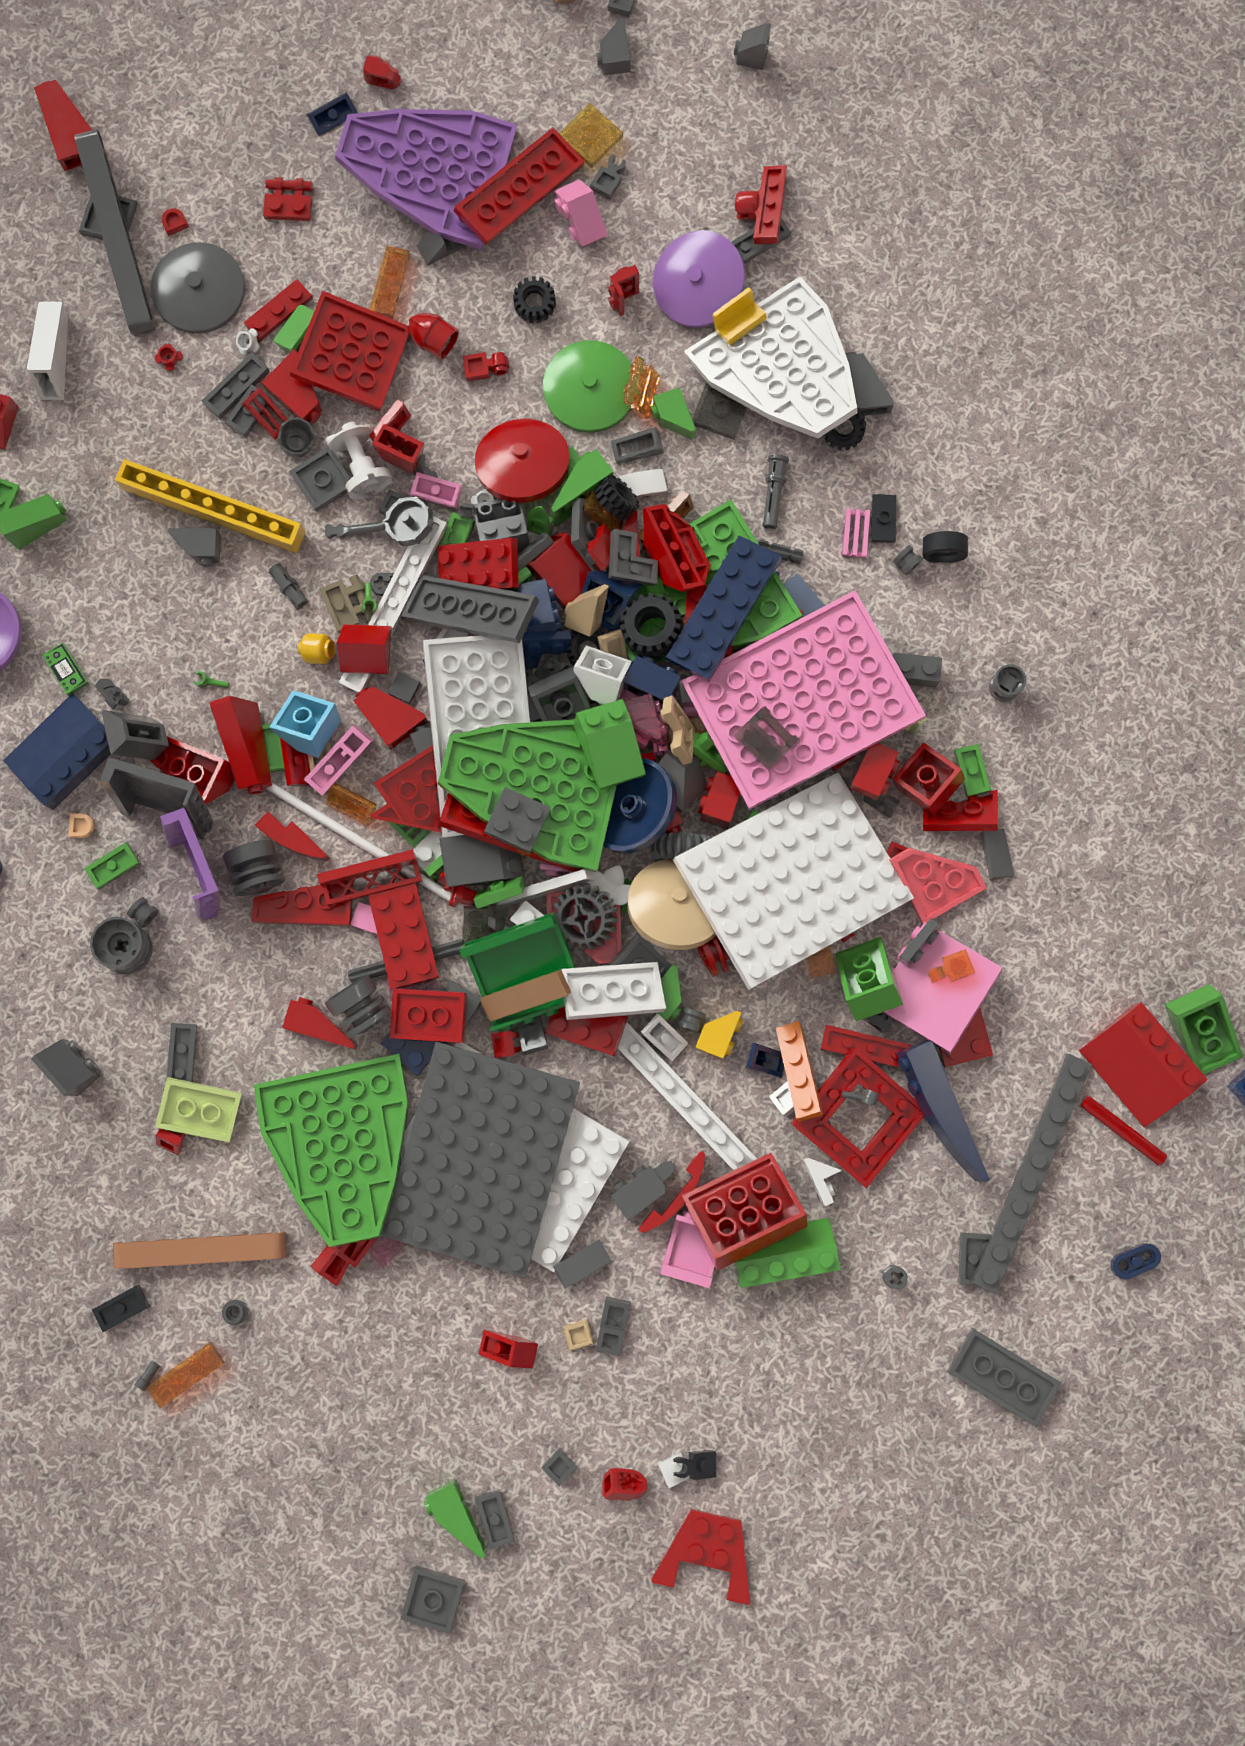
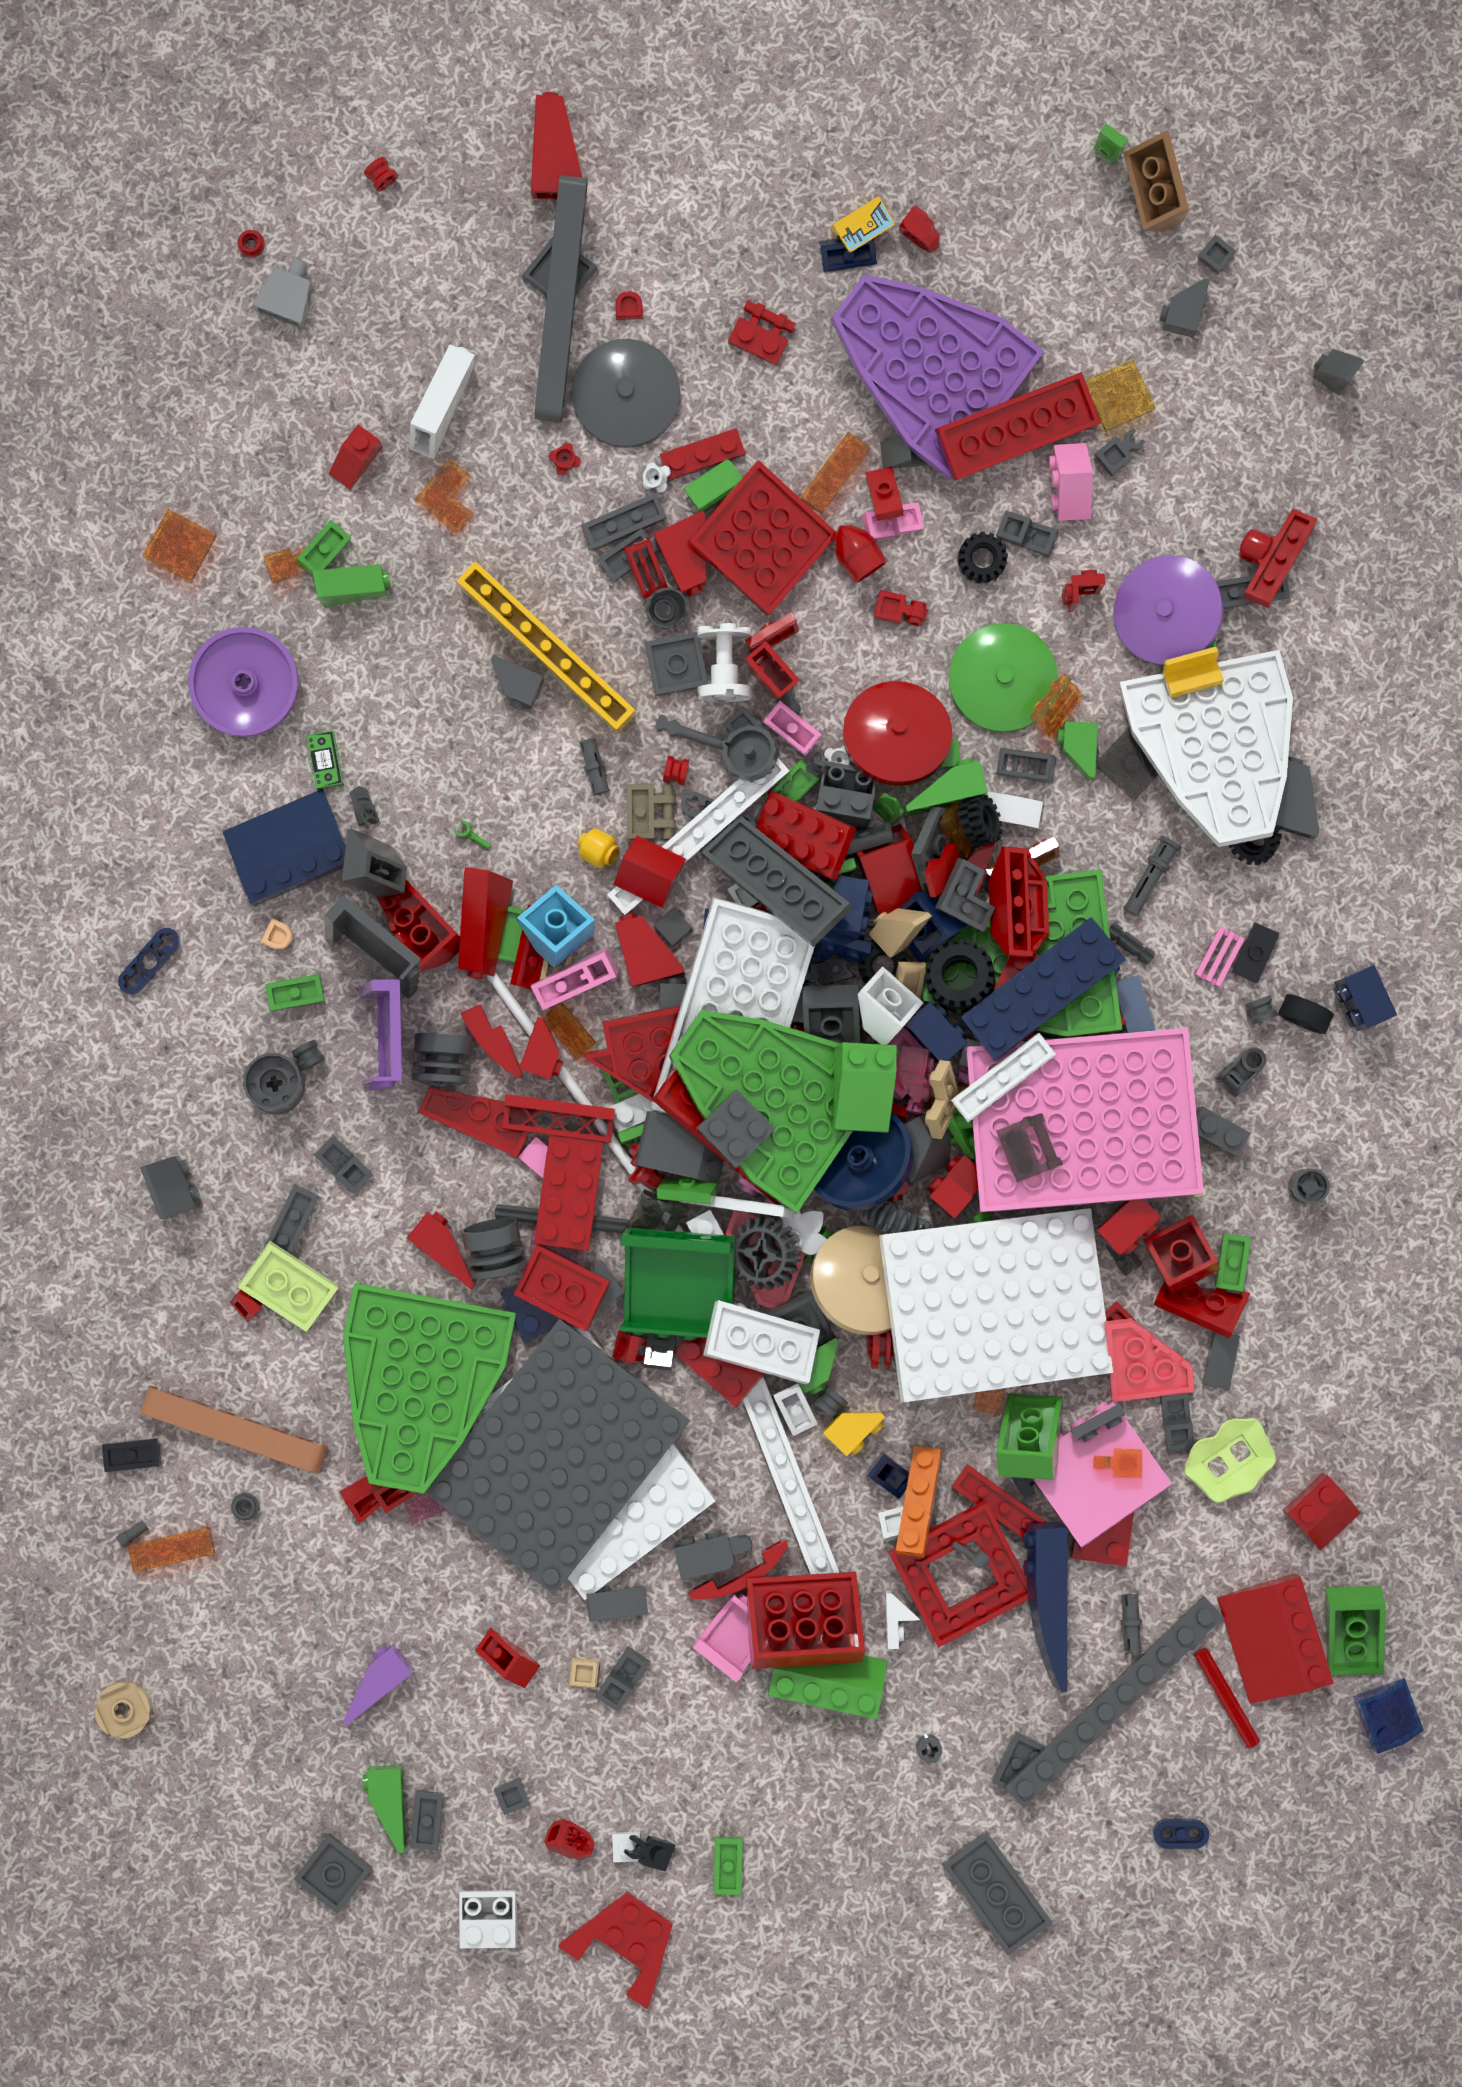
camera: 15 degrees right, 5 degrees up
(79, 424) = (439, 497): none -> clear orange plate
(196, 1547) = (130, 1695): none -> tan plate
(207, 990) = (343, 1164): none -> dark grey slope
(333, 84) = (863, 224): none -> panel
(334, 830) = (542, 1052): none -> red slope
(355, 562) = (676, 770): none -> red wheel
(368, 599) = (673, 818): bright green hand -> none
(405, 1412) = (382, 1675): none -> medium lavender slope
(435, 281) = (884, 494): none -> red plate
(453, 300) = (905, 524): none -> bright pink slope
(525, 995) = (670, 1311): medium nougat tile -> none
(558, 269) = (1027, 534): none -> dark grey slope
(581, 1583) = (488, 1919): none -> white slope
(721, 692) = (1003, 1077): none -> white tile
(767, 1449) = (728, 1865): none -> bright green plate
(912, 617) = (1241, 1071): none -> dark grey piece
(983, 919) = (1177, 1422): none -> dark grey slope
(987, 515) = (1364, 999): none -> dark blue brick
(1017, 1100) = (1131, 1622): none -> dark grey pin
(1054, 942) = (1241, 1476): none -> yellowish green piece
(1133, 942) = (1322, 1510): none -> red slope

